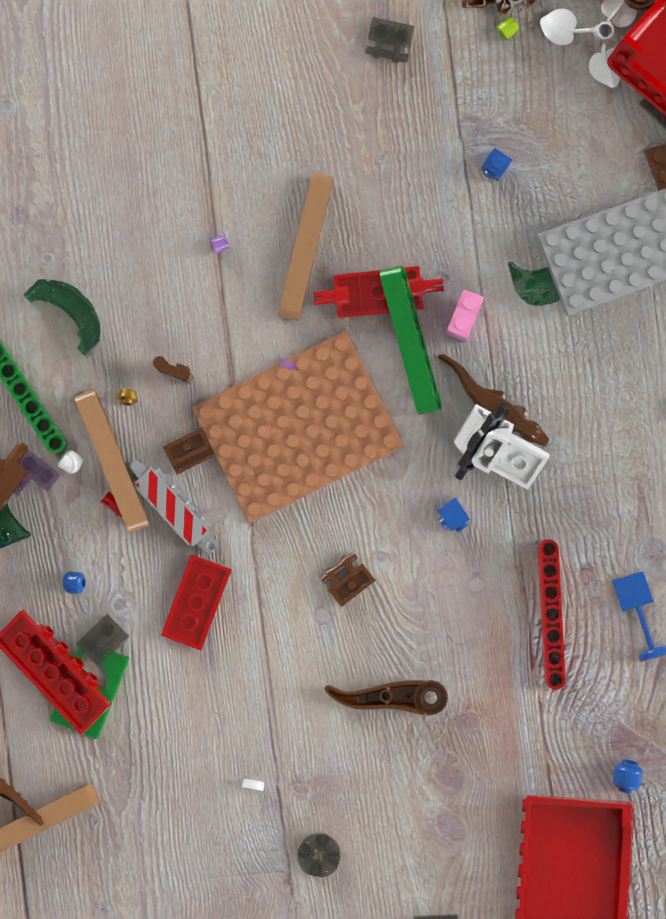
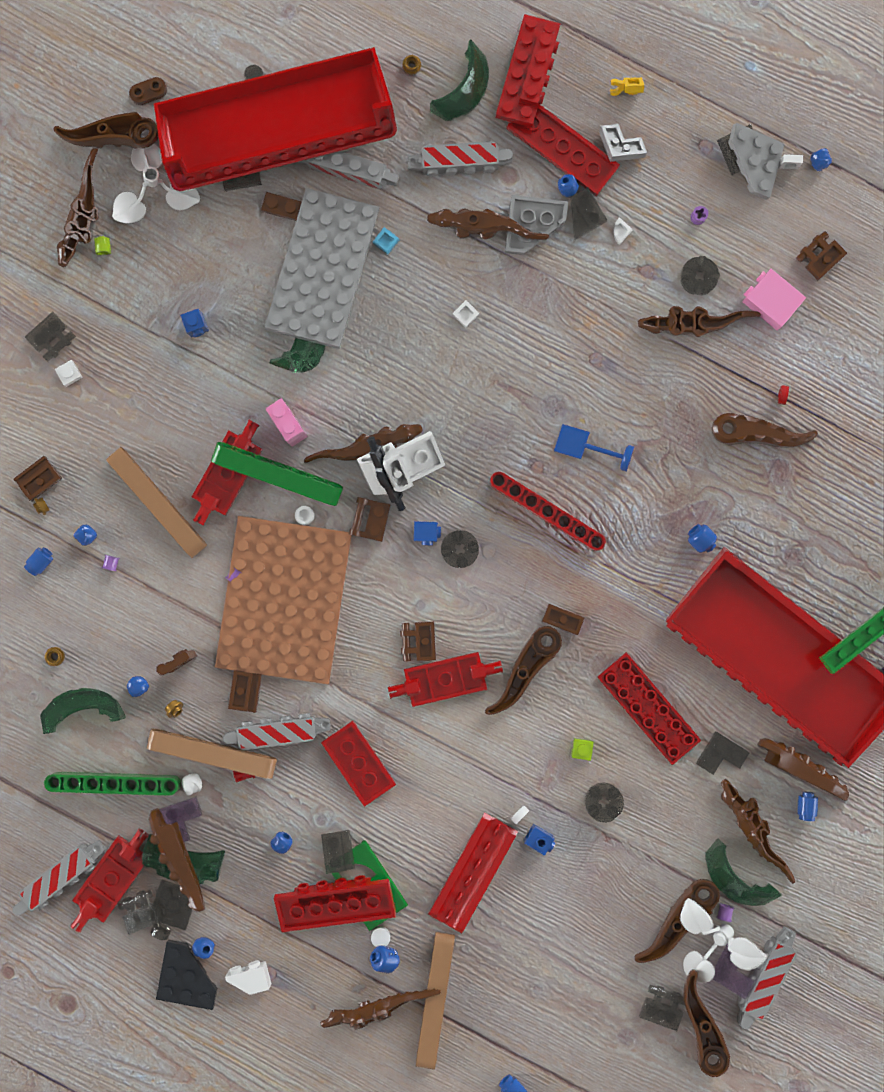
camera: 50 degrees left, 0 degrees up
(34, 752) = (384, 959): none -> blue head
(50, 734) = (380, 936): none -> white tile
(98, 246) = (49, 656): none -> pearl gold plate
(124, 348) = (137, 686): none -> blue piece
(169, 778) = (473, 872): none -> red plate
(175, 176) = (38, 561): none -> blue brick
(227, 142) = (41, 506): none -> pearl gold plate
(229, 202) = (85, 535): none -> blue piece
(243, 819) = (539, 840): none -> blue brick
(250, 121) = (37, 478): none -> reddish brown plate
(330, 628) = (445, 679): none -> red plate
(353, 801) = (582, 749): none -> lime plate
(367, 80) = (68, 373): none -> white plate
(389, 391) = (304, 515): none -> white tile
(431, 461) = (376, 520): none -> reddish brown plate
(434, 836) = (649, 708): none -> red plate
(461, 699) = (563, 619): none -> reddish brown plate
(467, 548) = (457, 538): none -> clear smoke plate

